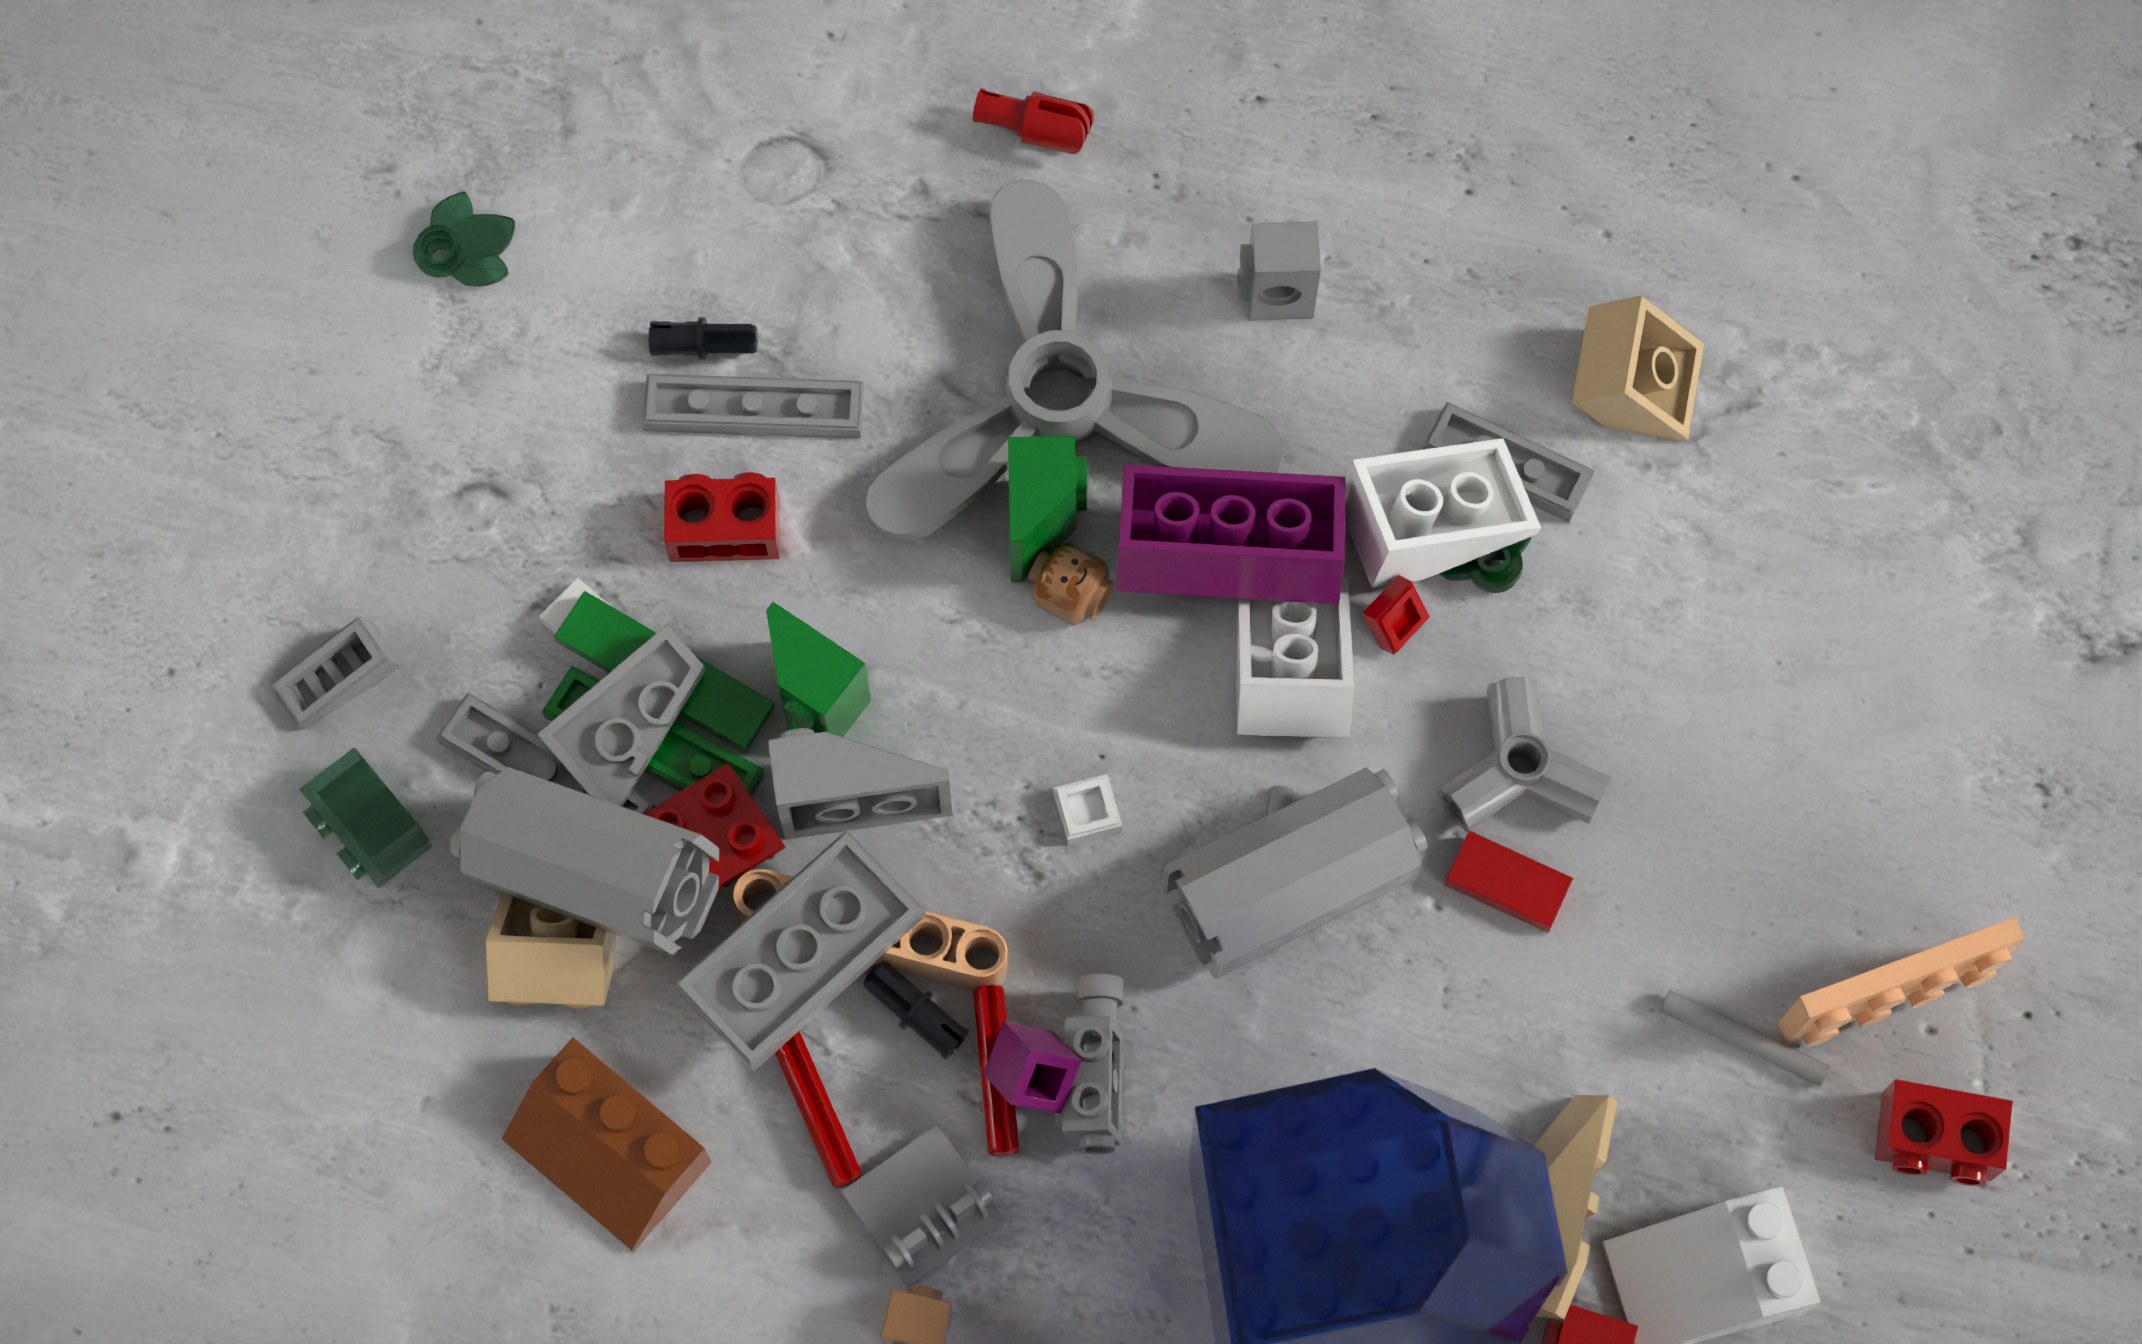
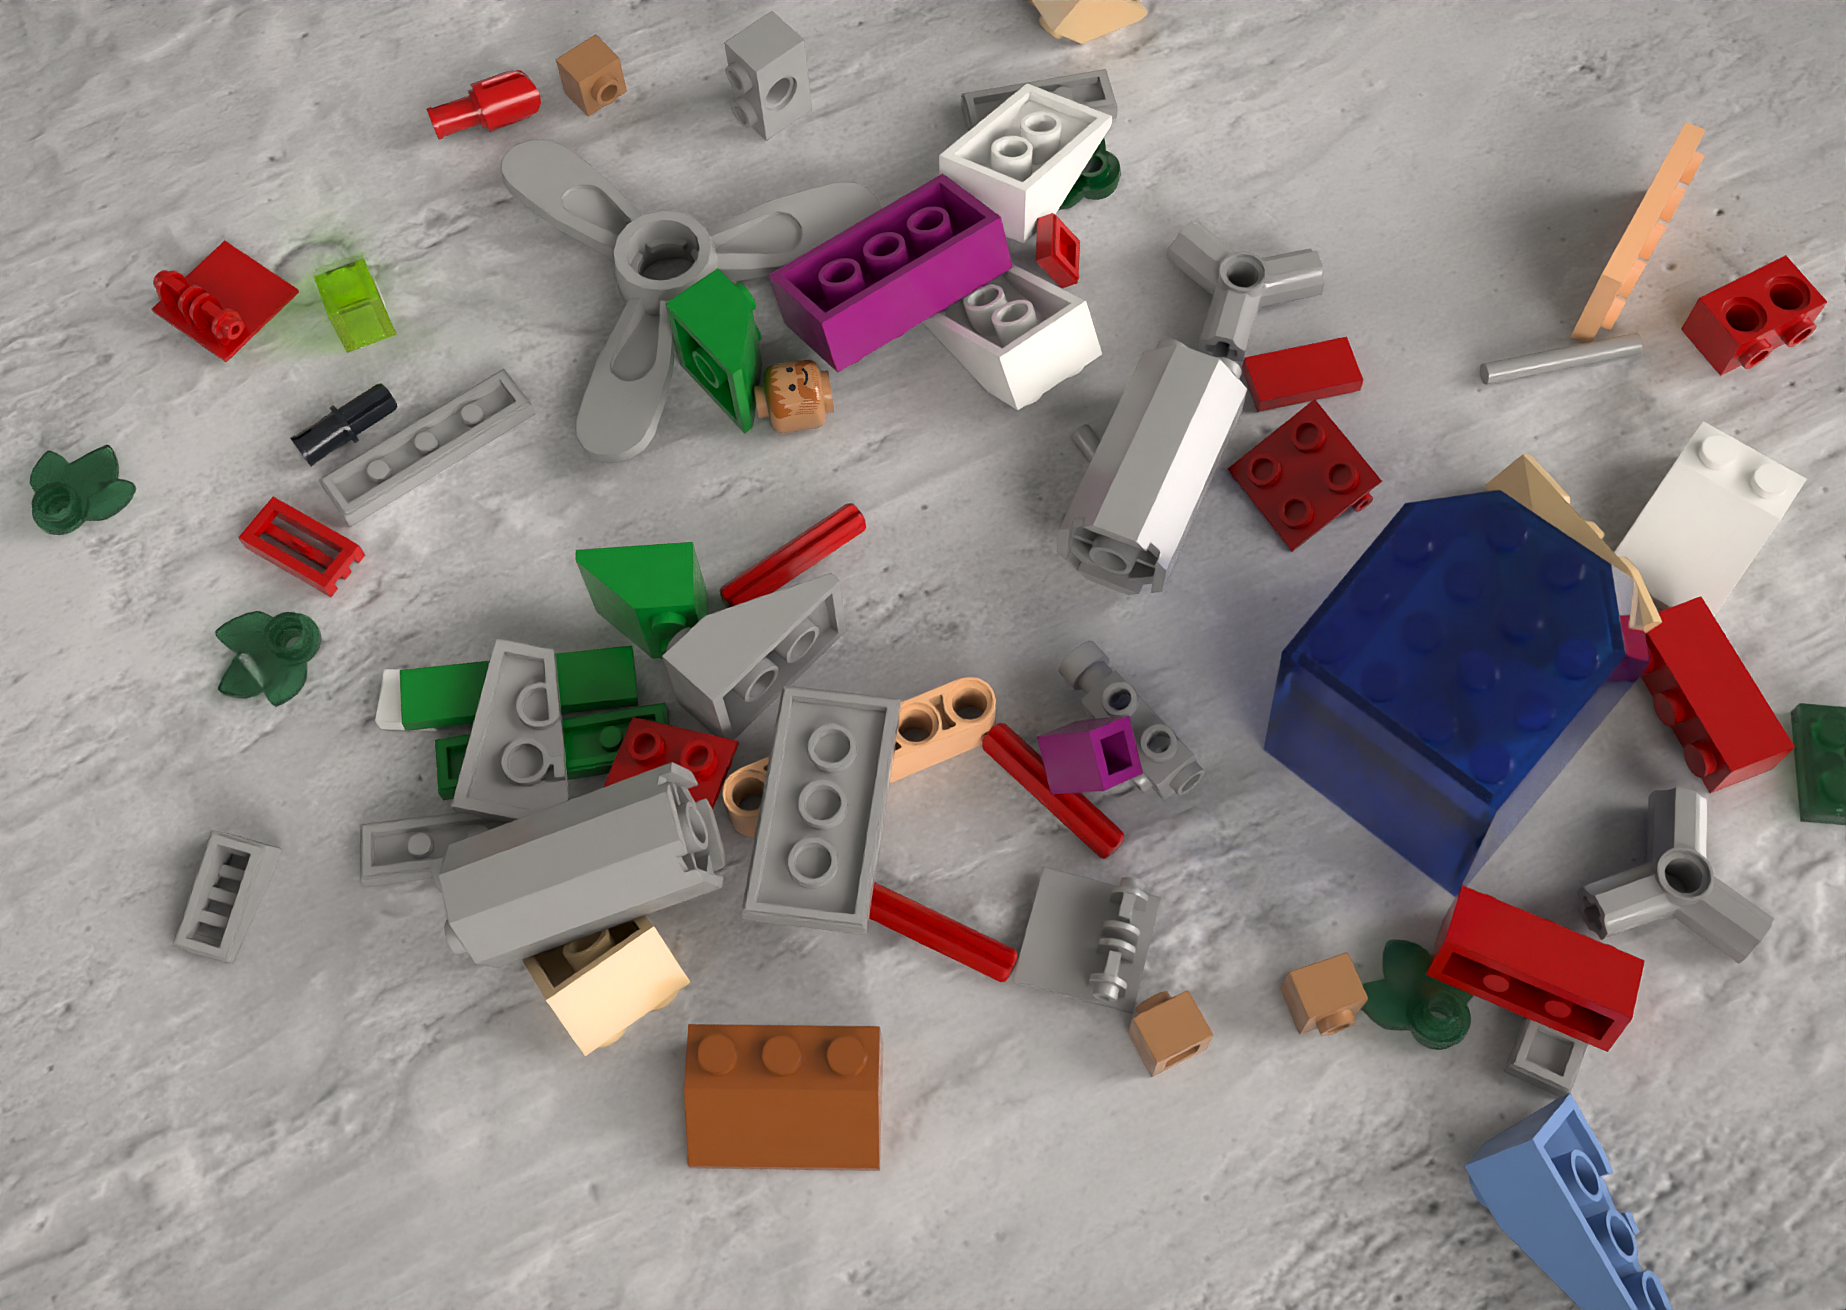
camera: 35 degrees left, 5 degrees down
(365, 818) = (348, 992): clear green brick -> none
(497, 498) = (262, 655): none -> clear green plate
(608, 460) = (335, 568): none -> red tile
(692, 149) = (221, 300): none -> red hinge
(721, 533) = (481, 549): red brick -> none
(791, 225) = (354, 302): none -> clear neon green slope
(915, 1009) = (949, 791): black axle -> none
(957, 723) = (795, 556): none -> red axle
(1087, 809) = (949, 548): white tile -> none
(1144, 153) = (591, 75): none -> medium nougat plate
(1422, 972) = (1305, 475): none -> red hinge

